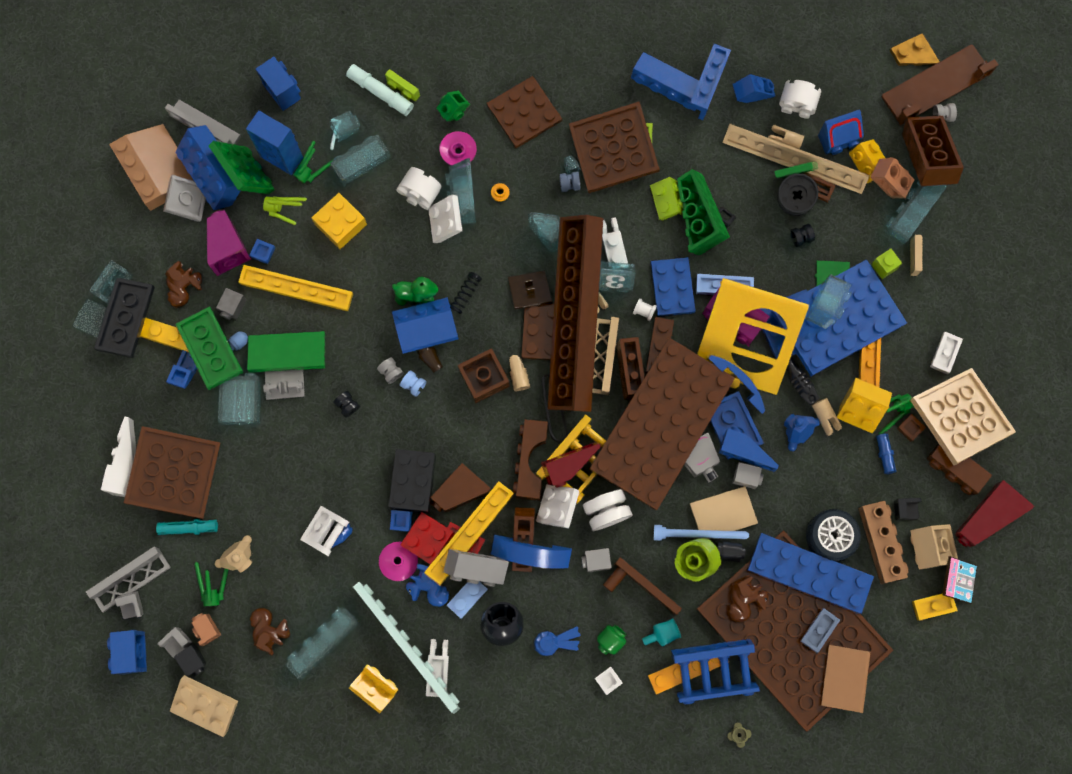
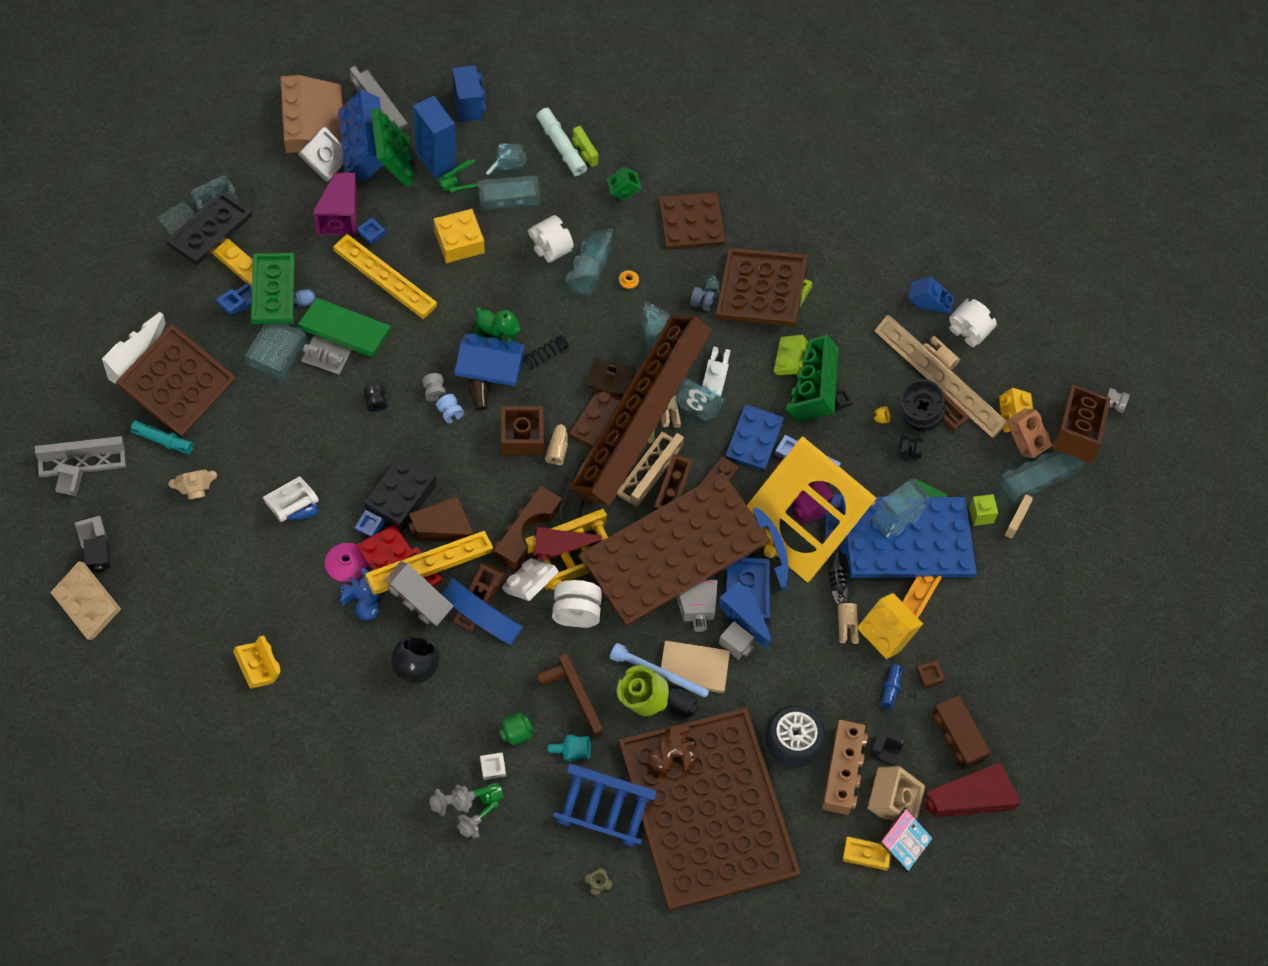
camera: 20 degrees right, 15 degrees down
(127, 652) = (42, 516): blue brick -> none
(178, 280) = (278, 221): reddish brown animal -> none
(205, 629) = (126, 534): nougat brick -> none
(209, 596) = (148, 507): green plant -> none
(230, 304) = (315, 262): flat silver brick -> none
(264, 634) = (181, 566): reddish brown animal -> none
(274, 204) = (406, 196): lime plant -> none
(319, 646) = (231, 598): clear light blue brick -> none
(412, 653) = (313, 644): light aqua plate -> none
(440, 665) = (328, 677): white hinge -> none
(445, 219) = (561, 276): white plate -> none
(455, 141) = (609, 216): dark pink dish -> none
(466, 598) = (395, 625): light blue plate -> none
(547, 643) = (451, 703): blue piece -> none
(596, 560) = (542, 648): light grey brick -> none
(605, 730) = (462, 801): none -> light grey plant
(644, 309) = (714, 444): white bush -> none
(665, 80) = (848, 253): blue brick -> none
(671, 675) = (556, 794): light orange plate -> none
(709, 79) = (889, 267): blue fence -> none
(766, 216) = (883, 415): none -> yellow hinge
(799, 429) = (814, 622): blue rock -> none
(803, 168) = (943, 380): green tile -> none
(810, 573) = (752, 759): blue plate -> none
(820, 630) = (733, 815): sand blue plate -> none
(841, 133) = (998, 369): blue slope -> none
(845, 678) = (736, 876): medium nougat piece -> none
(901, 403) = (933, 647): green plant -> none
(914, 52) = (1114, 333): pearl gold wing -> none
(938, 83) = (1125, 371): reddish brown bracket -> none
(946, 353) = (1004, 621): white plate -> none
(962, 416) = (988, 683): tan plate -> none

